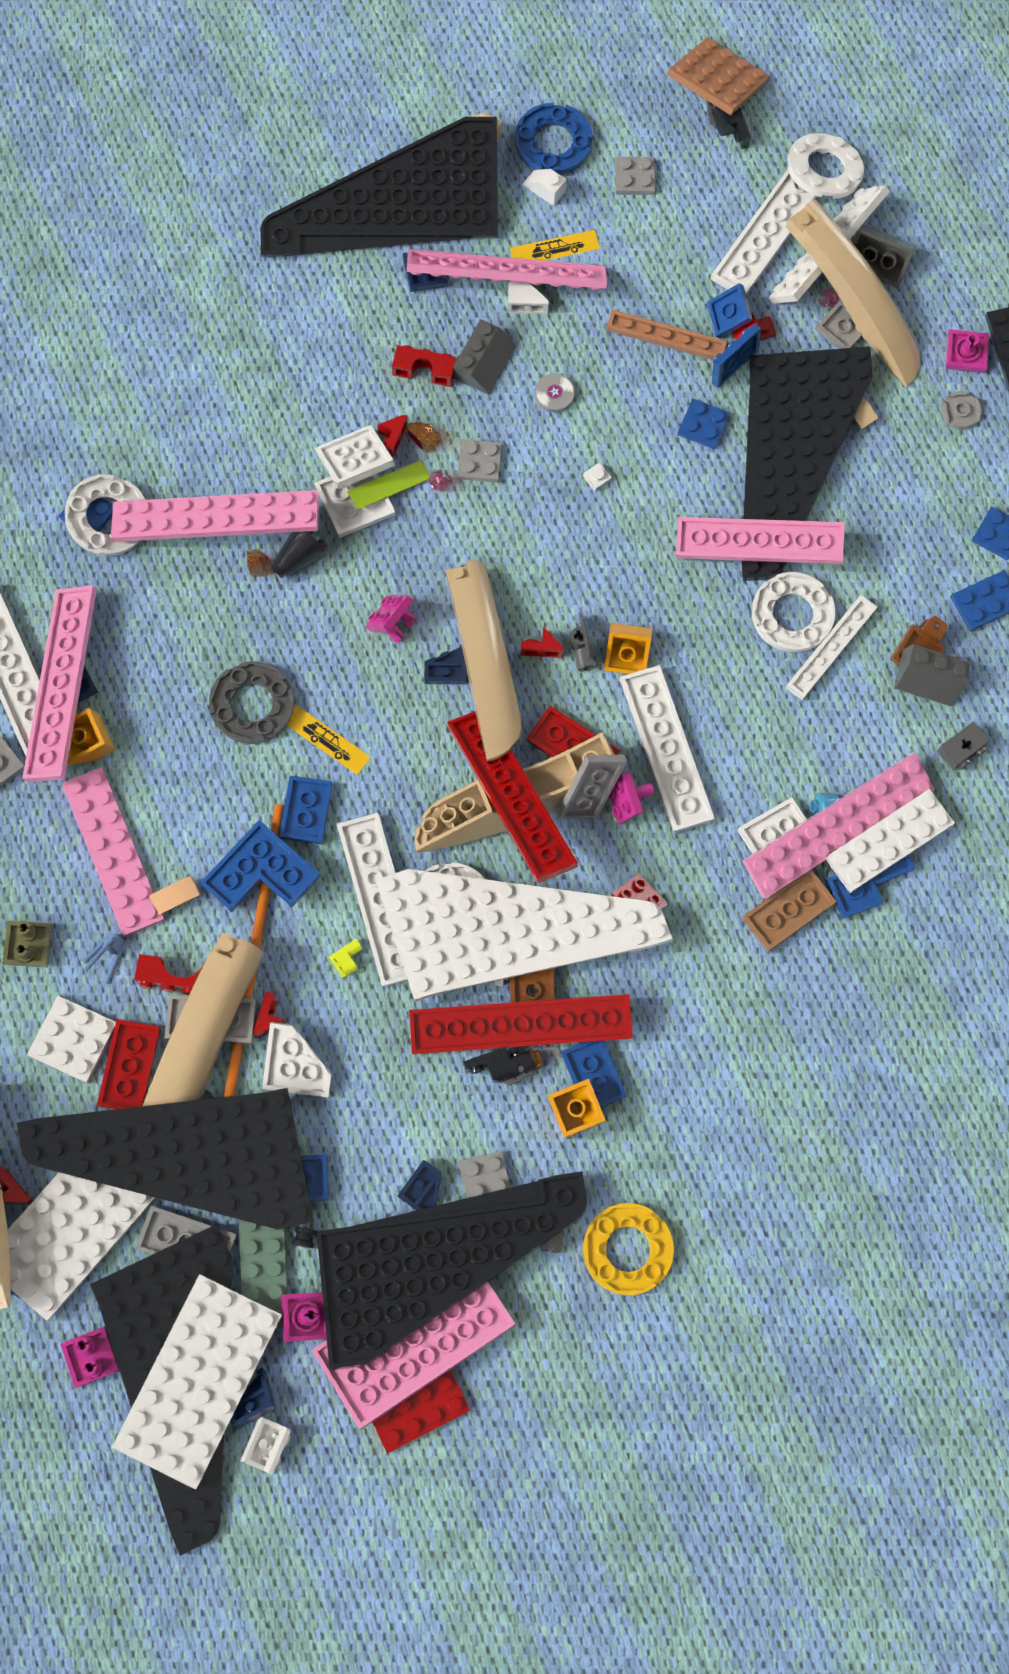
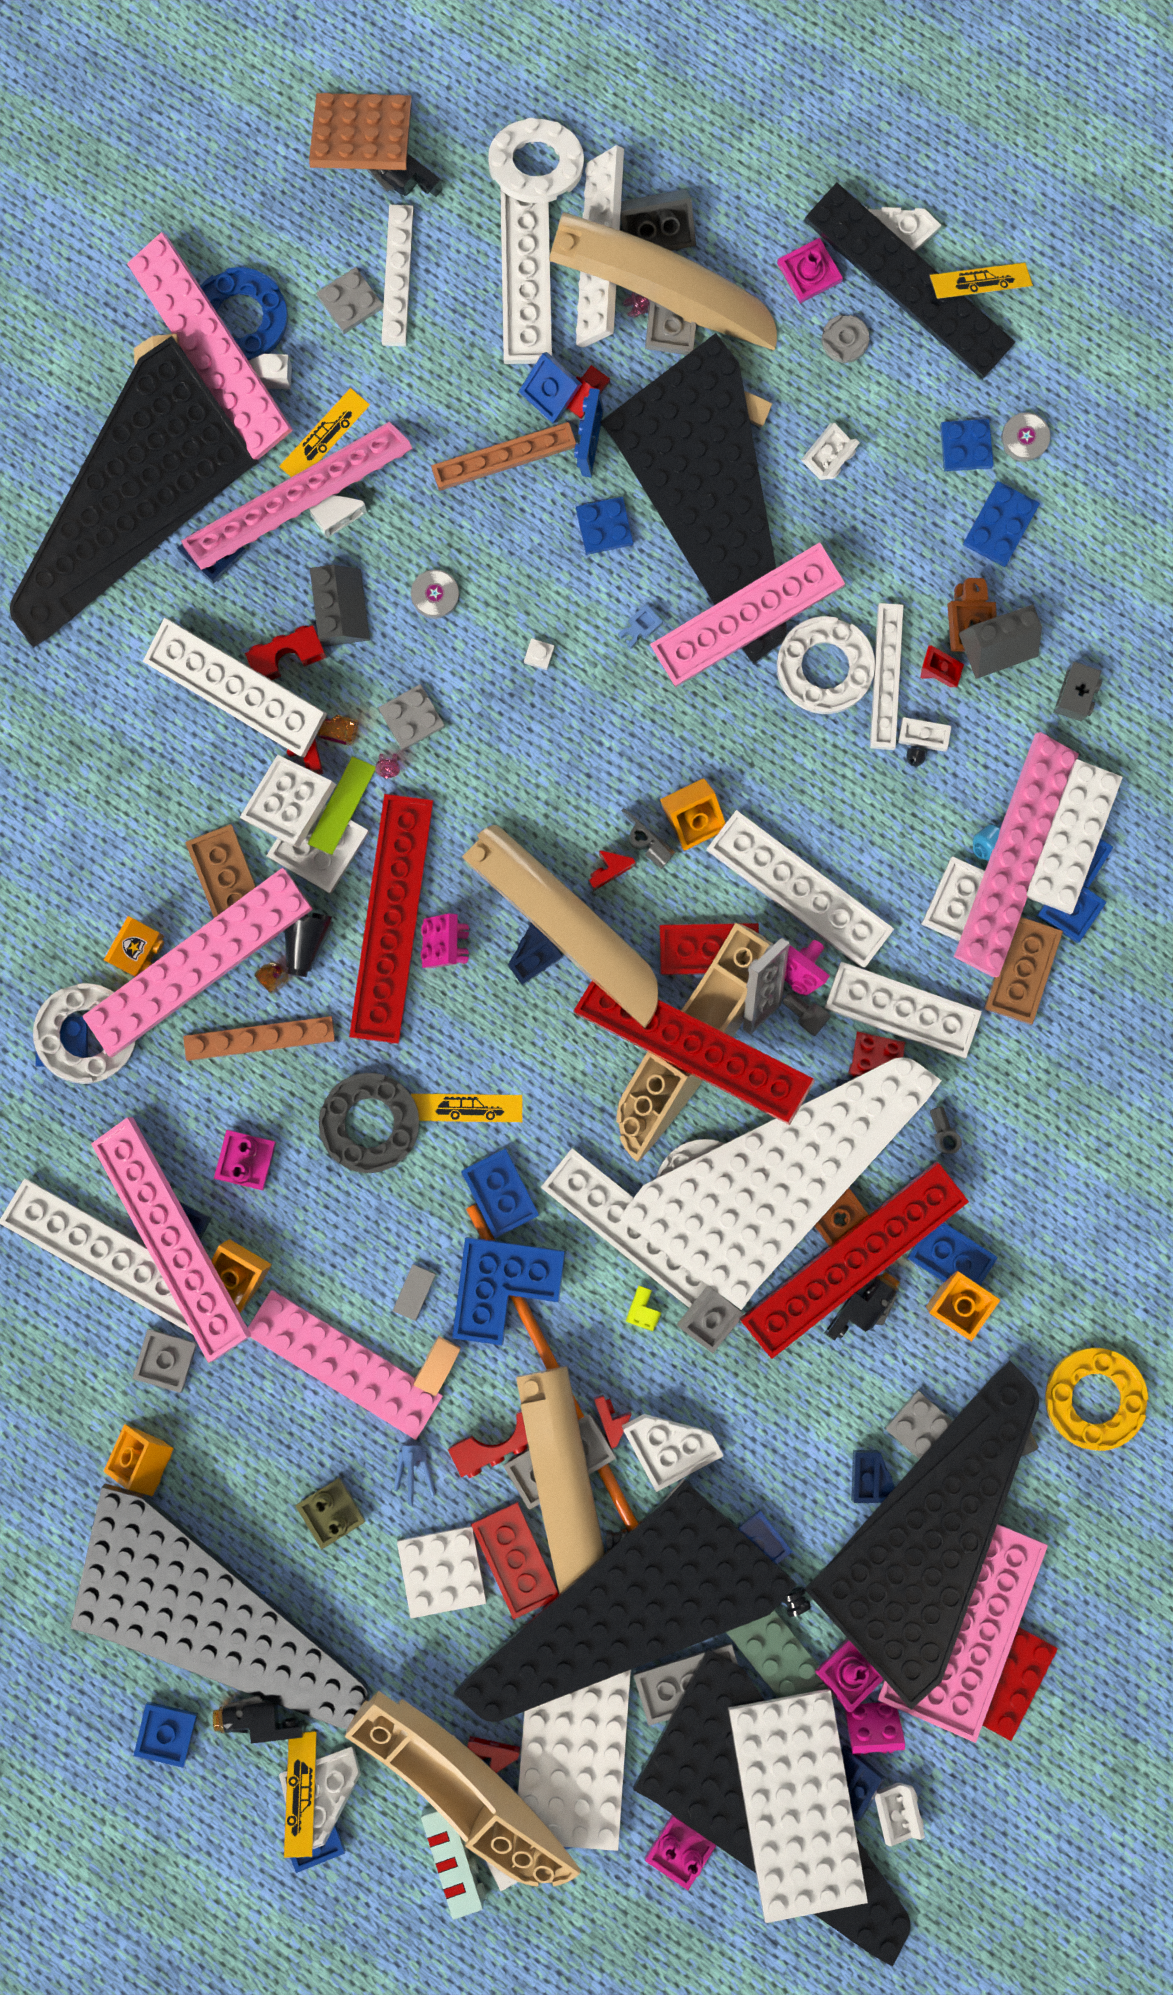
camera: 35 degrees left, 10 degrees up
(149, 669) = (245, 1160): none -> dark pink plate
(181, 479) = (134, 947): none -> light orange slope
(197, 836) = (414, 1292): none -> light grey tile
(220, 598) = (259, 1038): none -> nougat plate
(279, 468) = (221, 868): none -> medium nougat plate
(294, 1367) = (875, 1728): none -> dark pink plate
(367, 580) = (391, 919): none -> red plate
(374, 362) = (235, 687): none -> white plate
(388, 994) = (710, 1319): none -> light grey plate
(518, 144) = (209, 346): none -> bright pink plate
(611, 838) = (811, 1017): none -> dark grey axle
(651, 981) = (943, 1129): none -> dark grey axle
(678, 180) = (397, 275): none -> white plate
(681, 879) = (902, 1010): none -> white plate
(683, 502) = (642, 625): none -> medium blue plate
(814, 714) = (915, 756): none -> black hinge
(831, 703) = (924, 734): none -> white plate
(874, 664) = (941, 667): none -> red slope
(896, 474) = (830, 452): none -> white bracket

